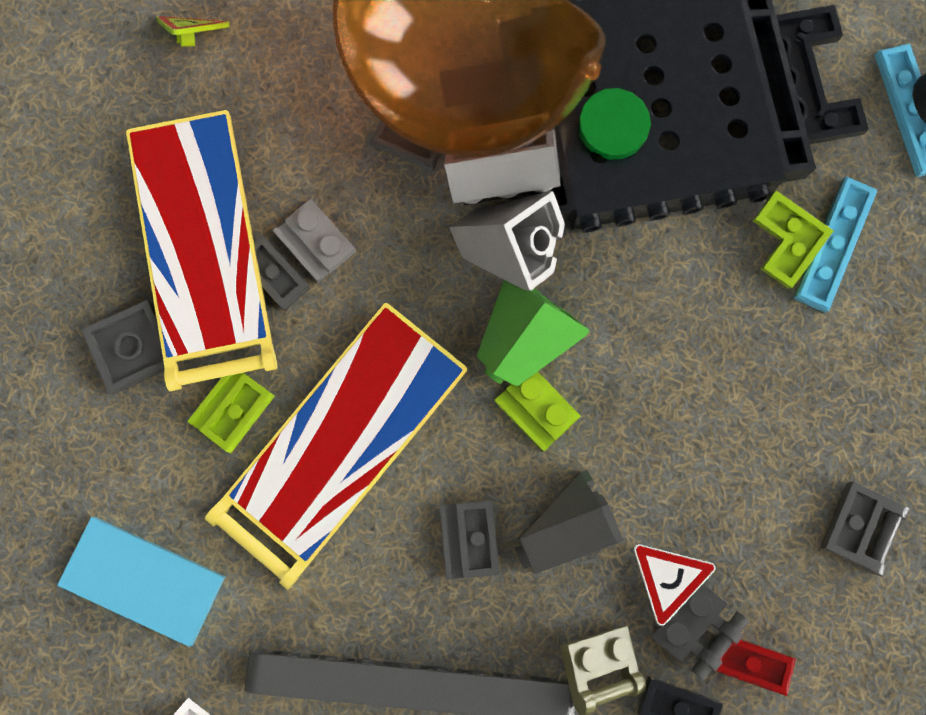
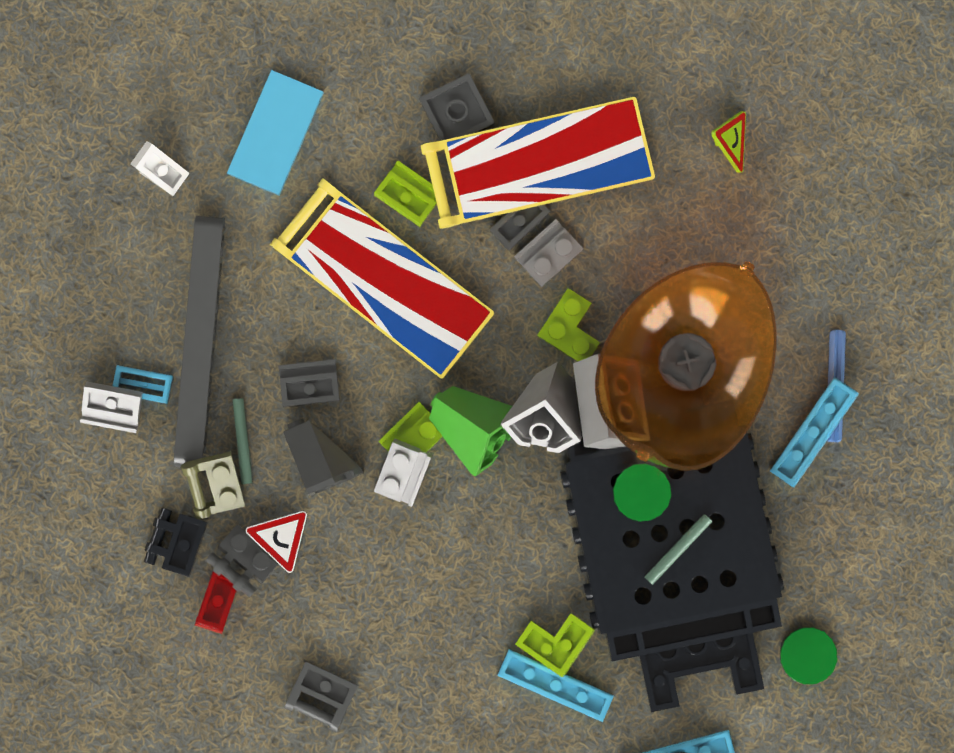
camera: 90 degrees right, 5 degrees up
(410, 226) = (562, 328): none -> lime plate
(454, 69) = (687, 362): none -> dark grey tile
(543, 628) = (242, 441): none -> sand green bar
(584, 420) = (403, 472): none -> plate
(682, 84) = (675, 552): none -> sand green bar

